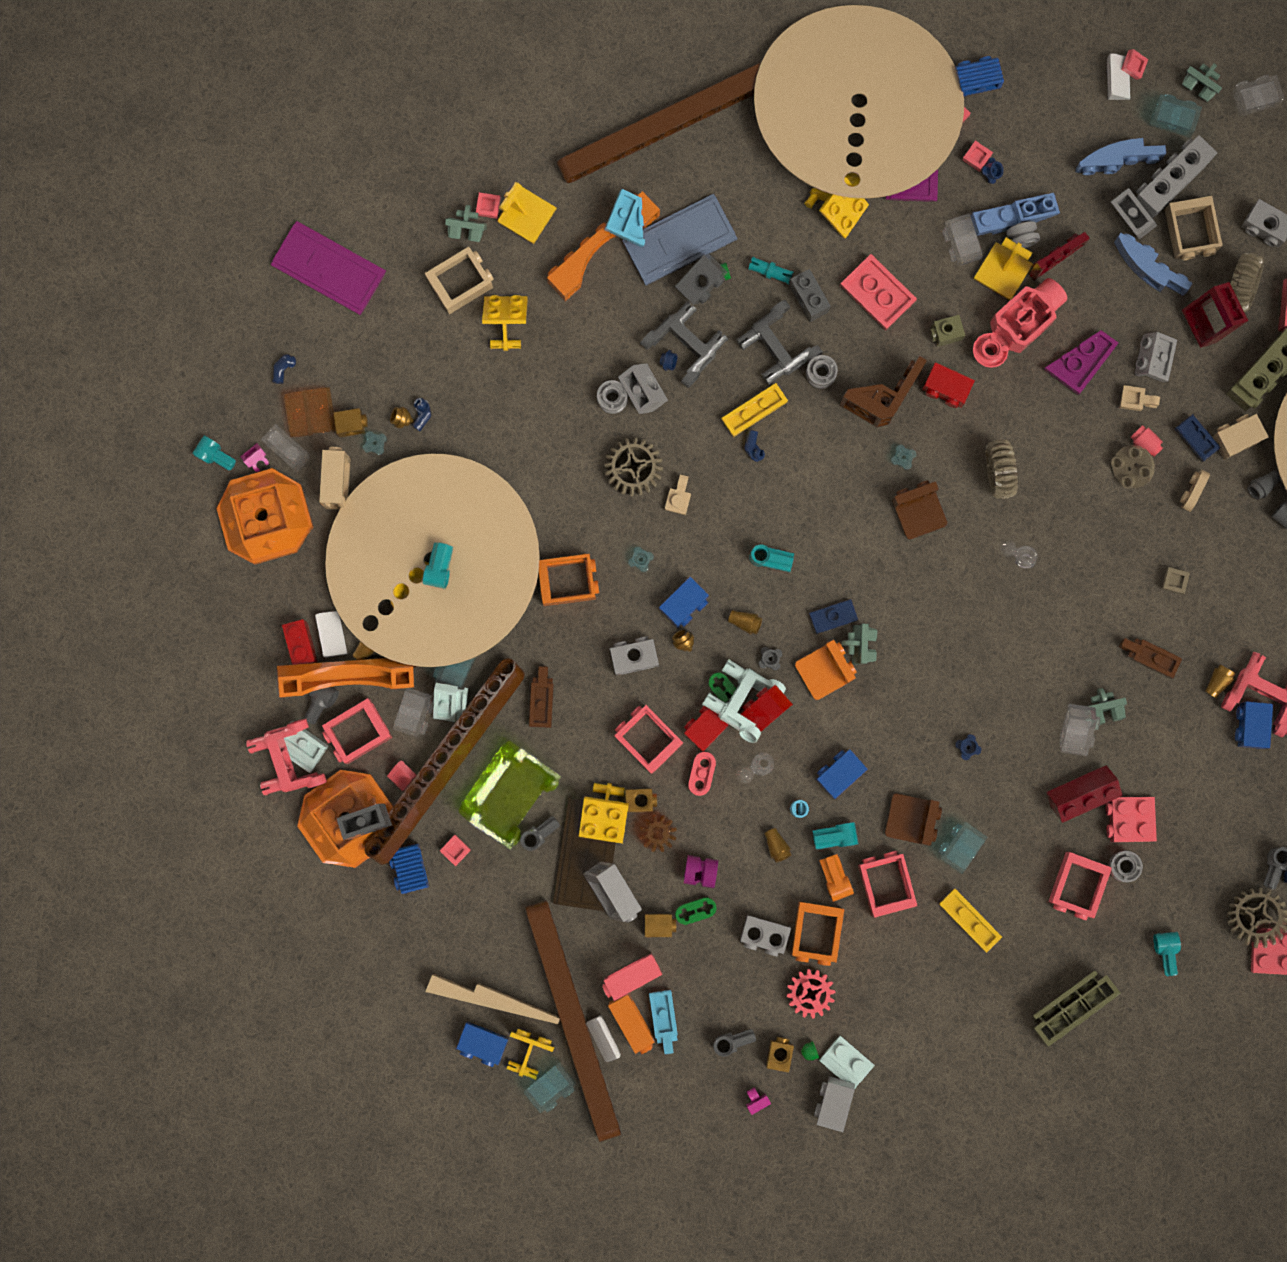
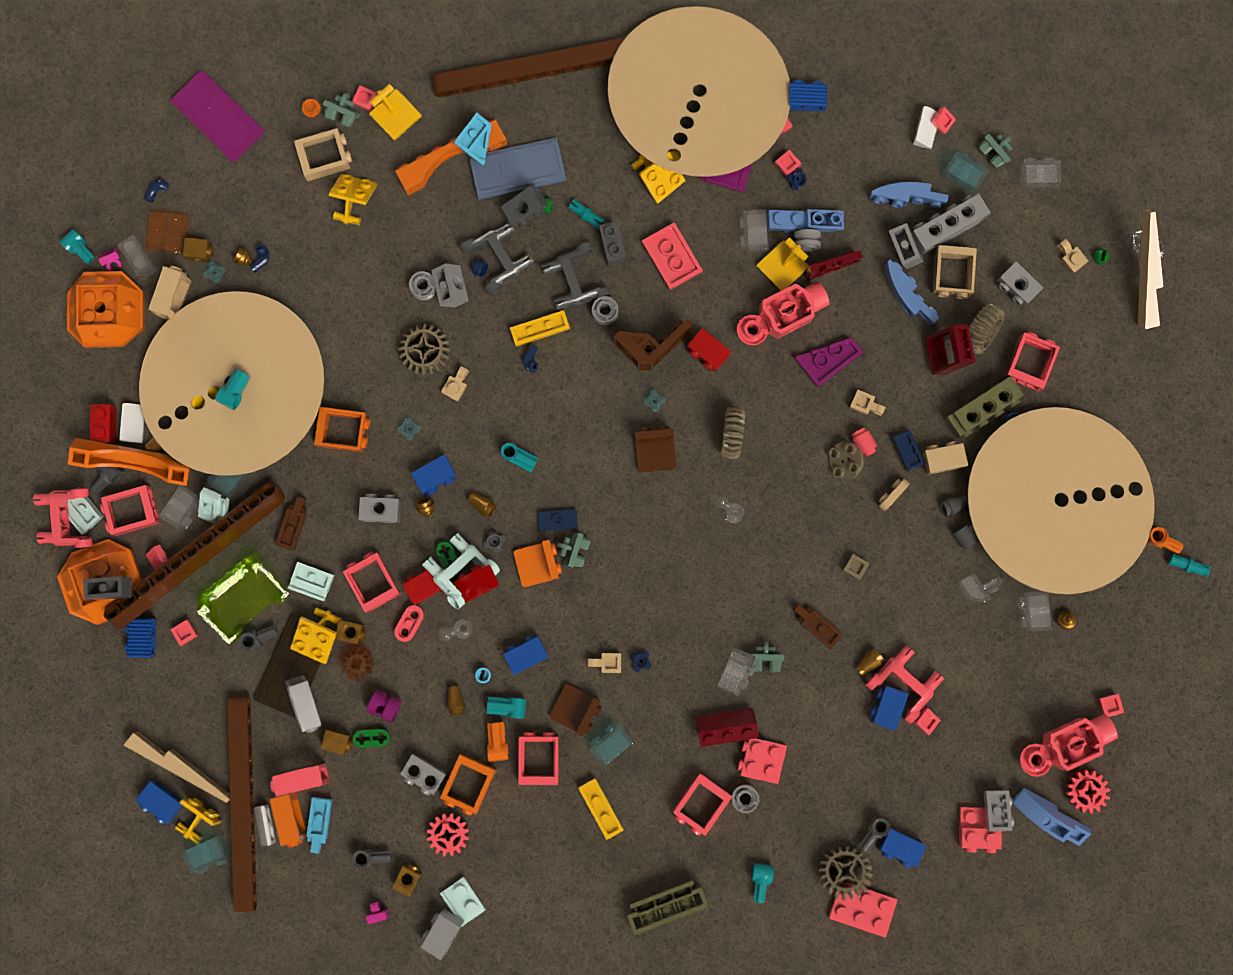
camera: 15 degrees right, 0 degrees up
(430, 232) = (311, 108): none -> orange plate
(580, 756) = (311, 581): none -> light aqua plate
(809, 1051) = (434, 883): green hinge -> none
(933, 757) = (609, 662): none -> tan plate
(947, 331) = (720, 304): olive brick -> none
(1156, 356) = (892, 372): light grey bracket -> none

